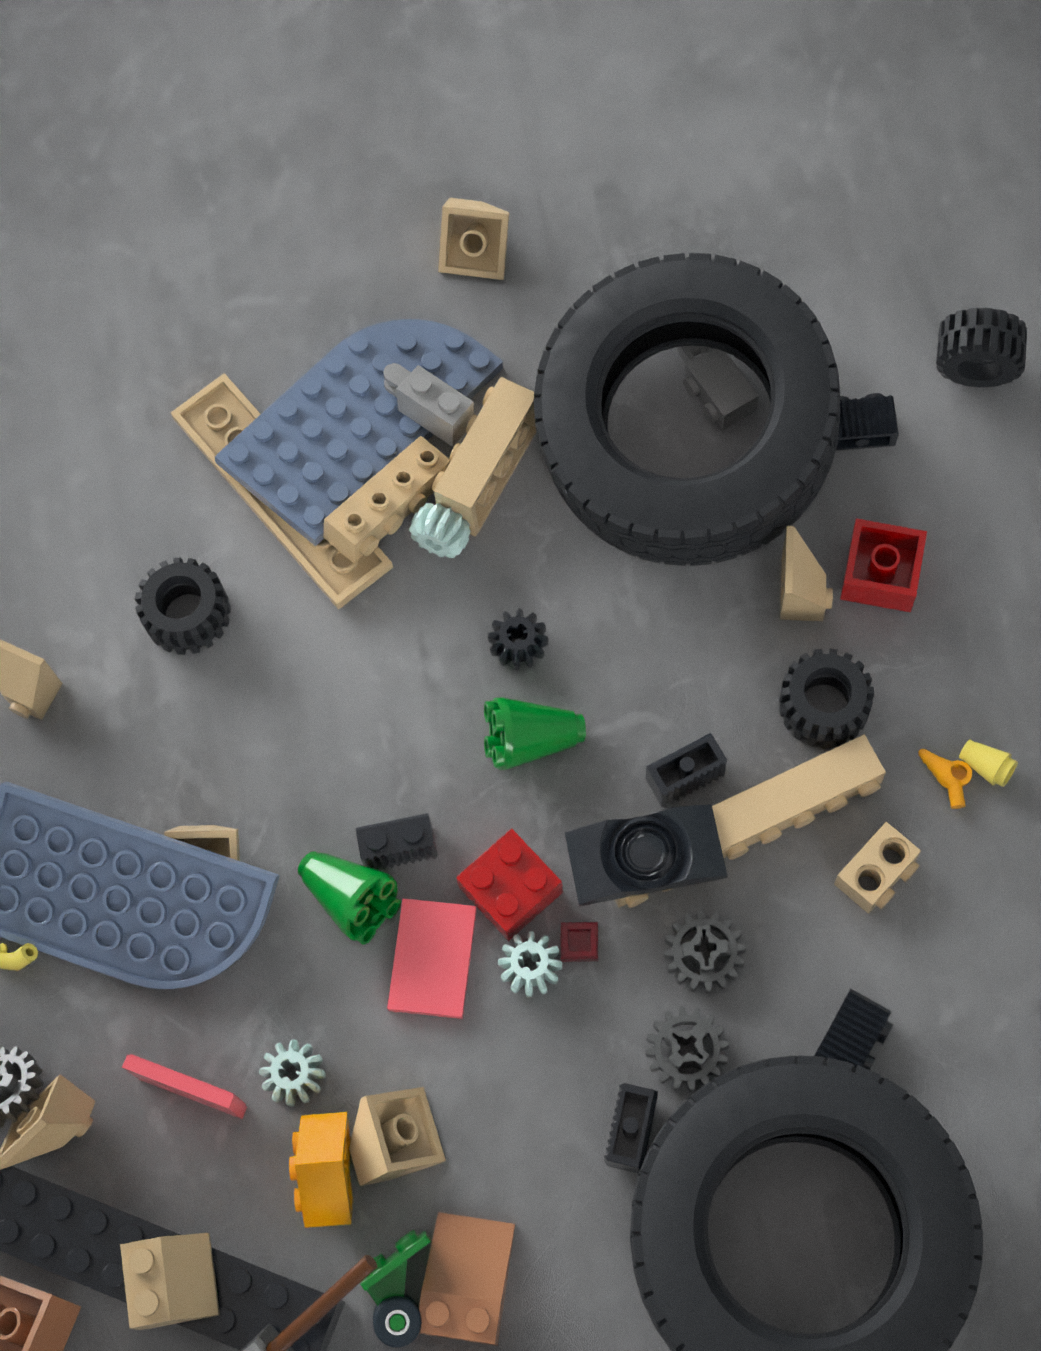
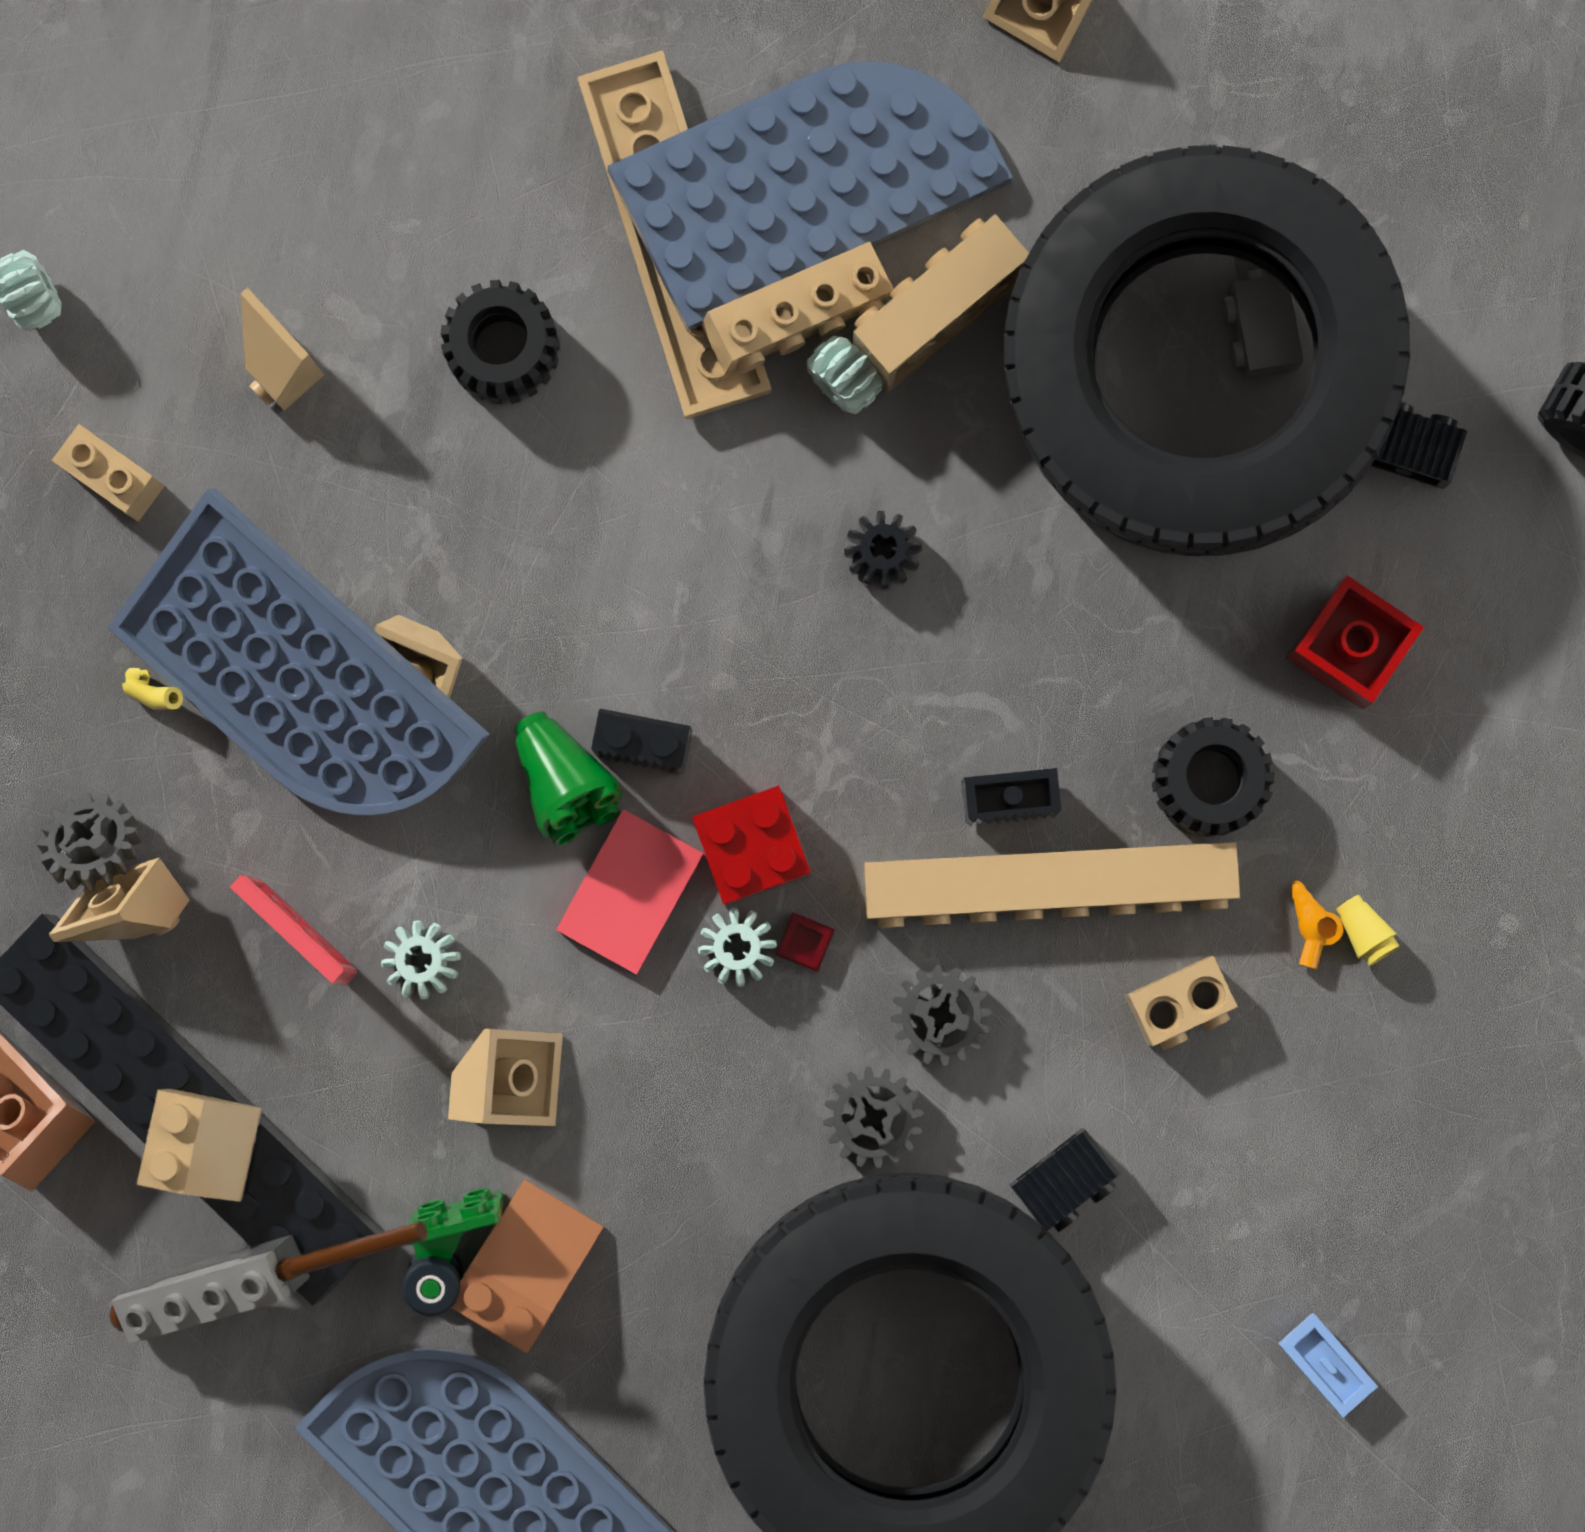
camera: 20 degrees right, 15 degrees up
(322, 1170) = (414, 1084): light orange brick -> none
(429, 401) = (896, 205): light grey brick -> none
(528, 731) = (847, 672): green cone -> none
(630, 1127) = (772, 1182): black brick -> none
(645, 854) = (920, 880): black slope -> none
(802, 581) = (1249, 622): tan slope -> none

